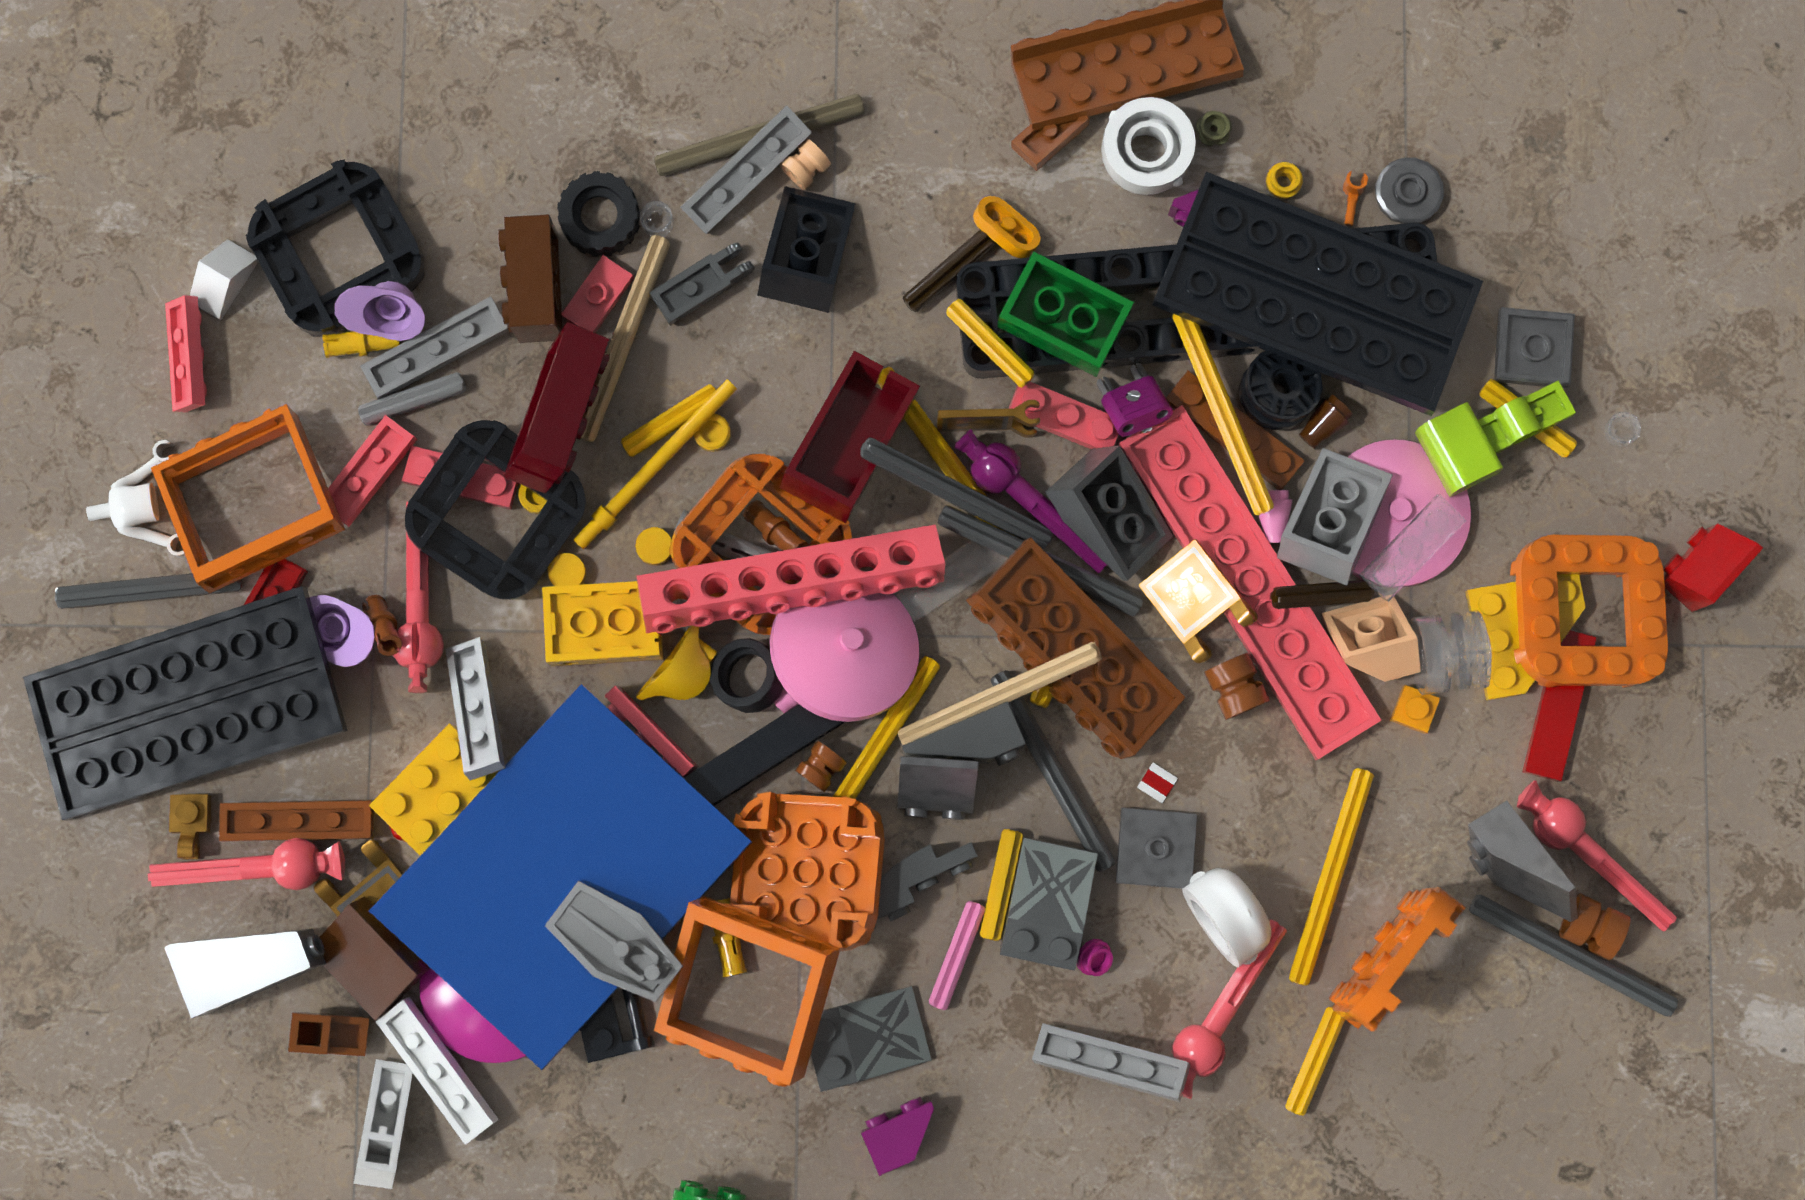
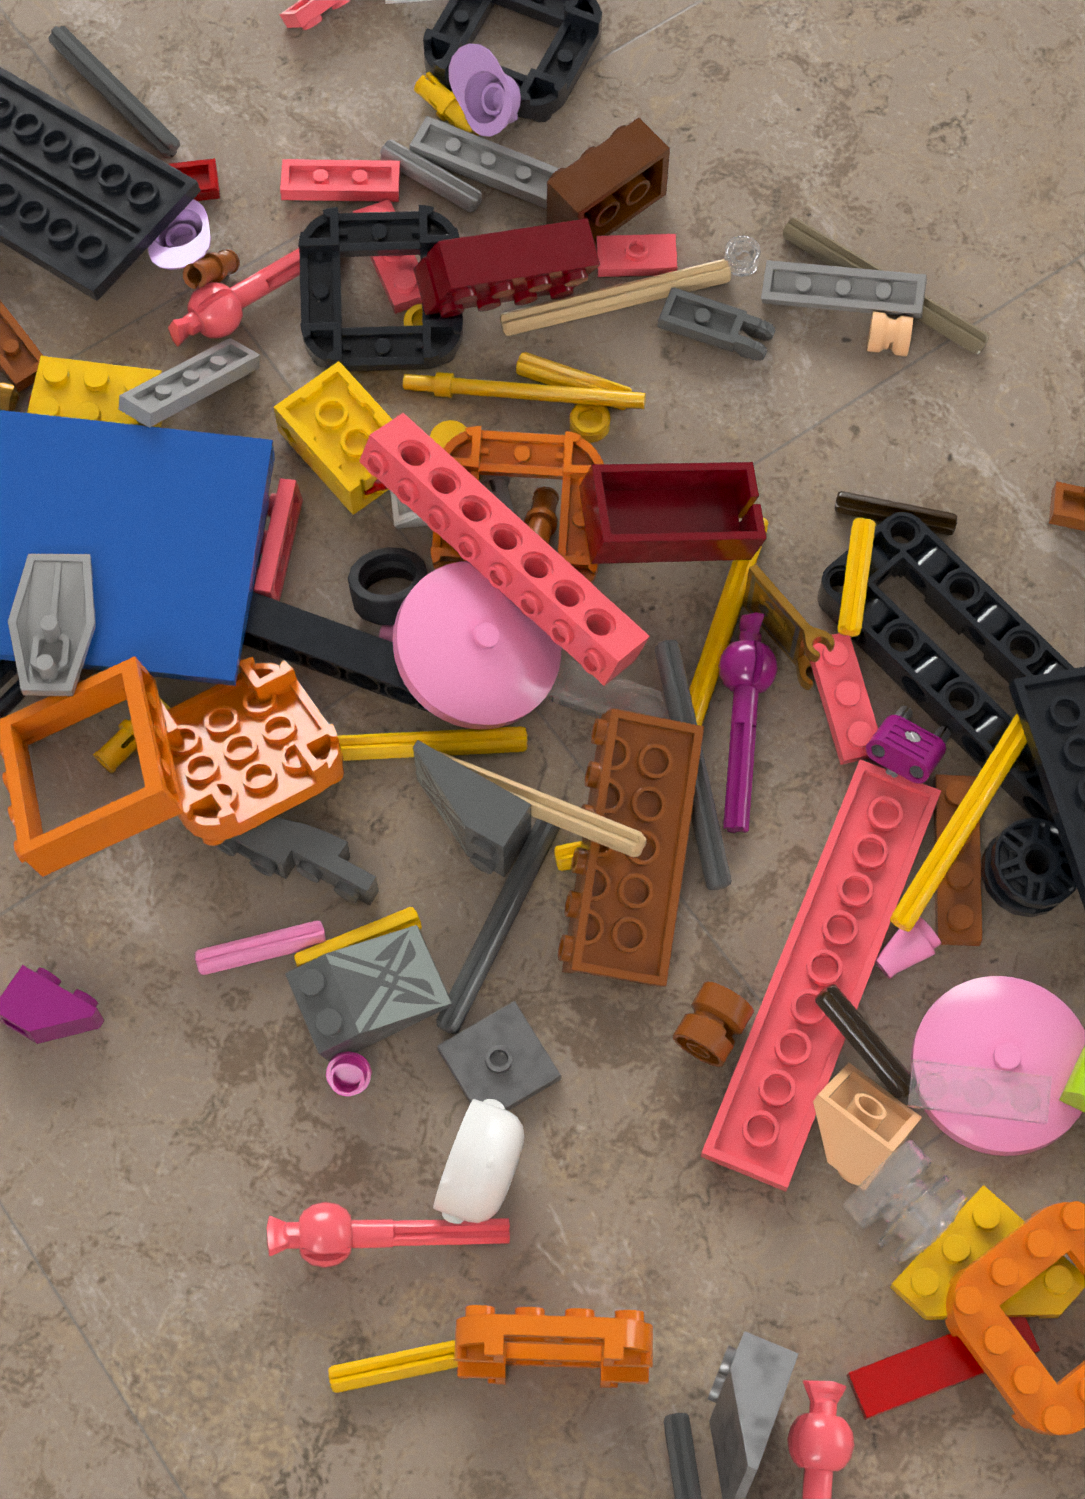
camera: 55 degrees right, 15 degrees down
(137, 504) = (182, 36): white piece -> none
(269, 548) = (222, 146): orange window -> none
(566, 570) = (377, 384): yellow tile -> none
(593, 186) = (714, 181): black tyre -> none
(683, 671) = (355, 529): yellow hat -> none
(806, 249) = (813, 383): black slope -> none
(821, 766) = (342, 705): dark orange wheel -> none
(869, 1039) = (120, 917): dark grey slope -> none
(937, 786) = (407, 806): flat silver slope -> none
(954, 492) = (693, 636): dark grey axle -> none
(1006, 227) = (976, 530): light orange plate -> none
(1064, 314) = (935, 614): green brick -> none
(1110, 510) = (788, 794): dark grey slope -> none
(1111, 1062) = (253, 1155): light grey plate -> none
(1157, 782) = (564, 1022): sticker -> none
(1192, 594) = (770, 923): flag -> none
(1326, 421) = (1035, 934): reddish brown cone -> none
(1331, 877) = (595, 1251): yellow axle -> none
(1334, 516) = (947, 996): light grey slope -> none
(1414, 709) = (825, 1219): light orange plate -> none

